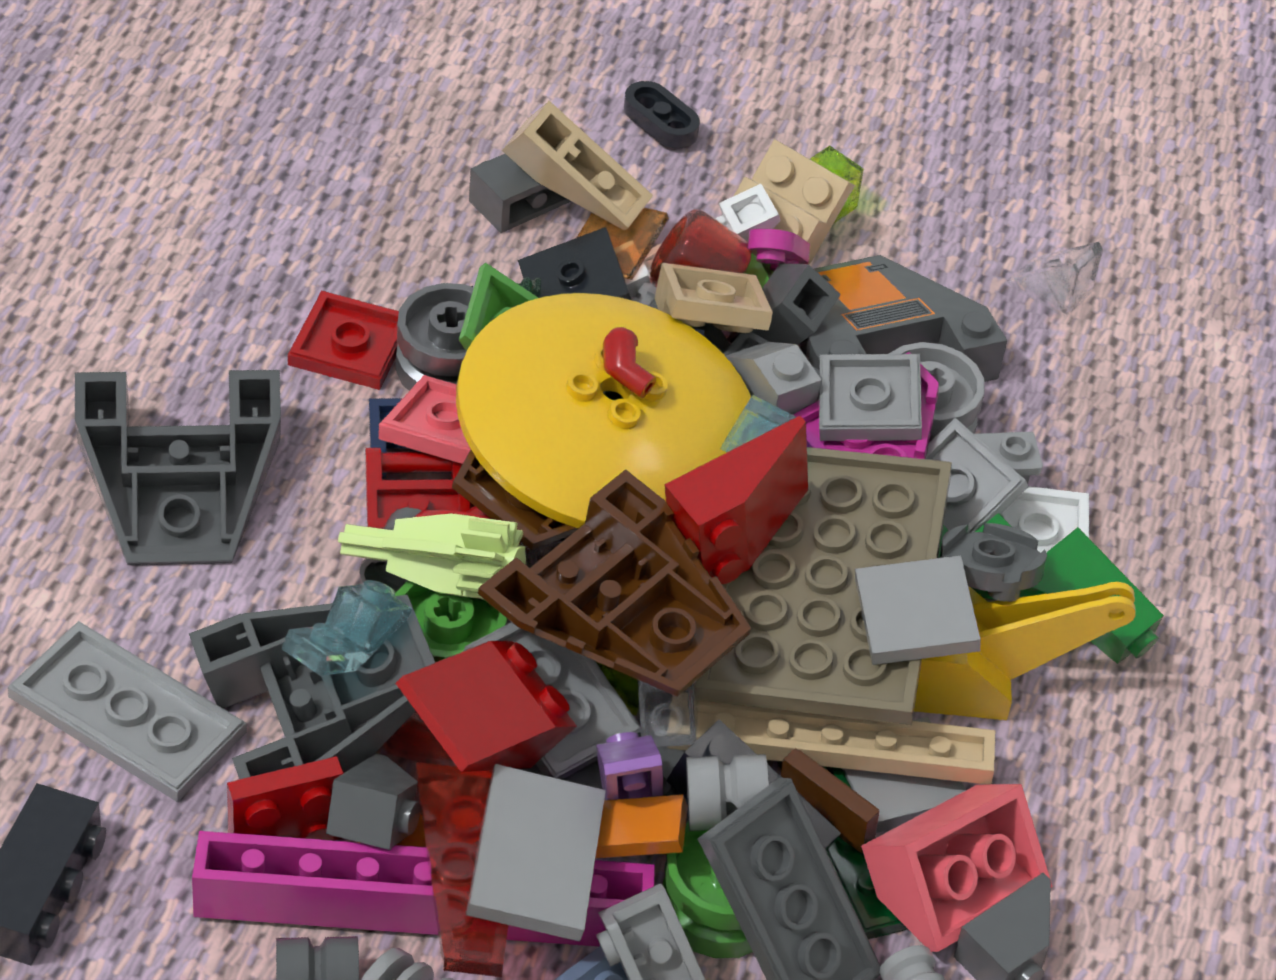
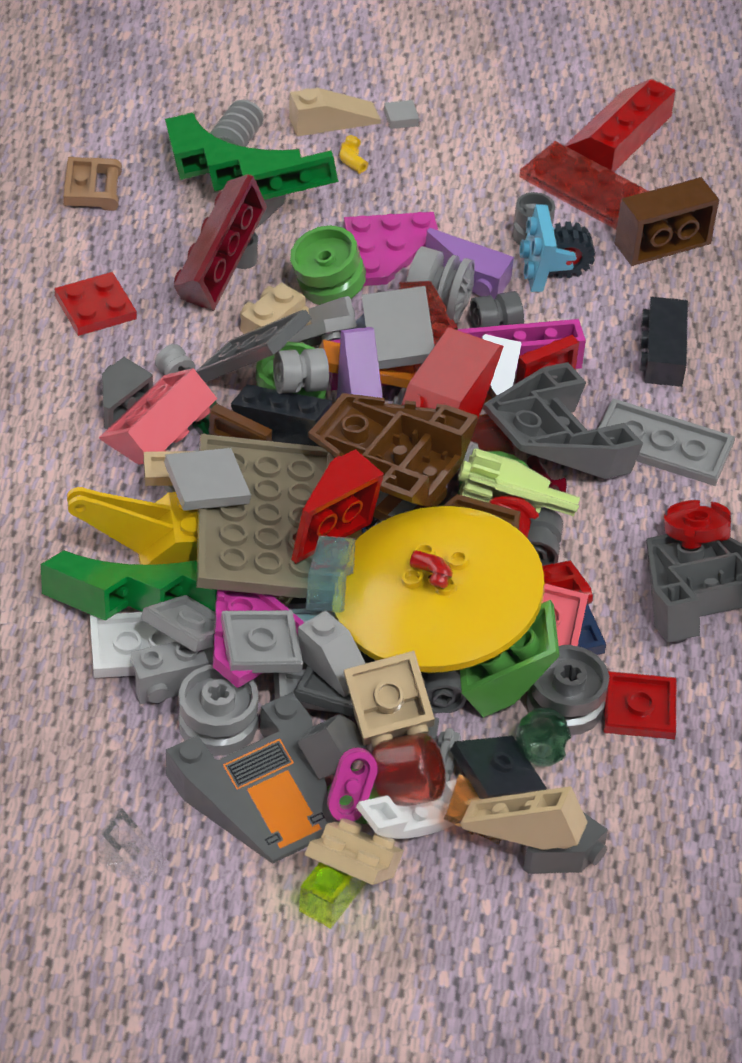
camera: 170 degrees right, 0 degrees up
(136, 565) = (697, 523): none -> red plate
(355, 628) = (549, 416): clear light blue slope -> none
(661, 114) = (481, 952): black plate -> none
(996, 559) = (166, 556): dark grey plate -> none

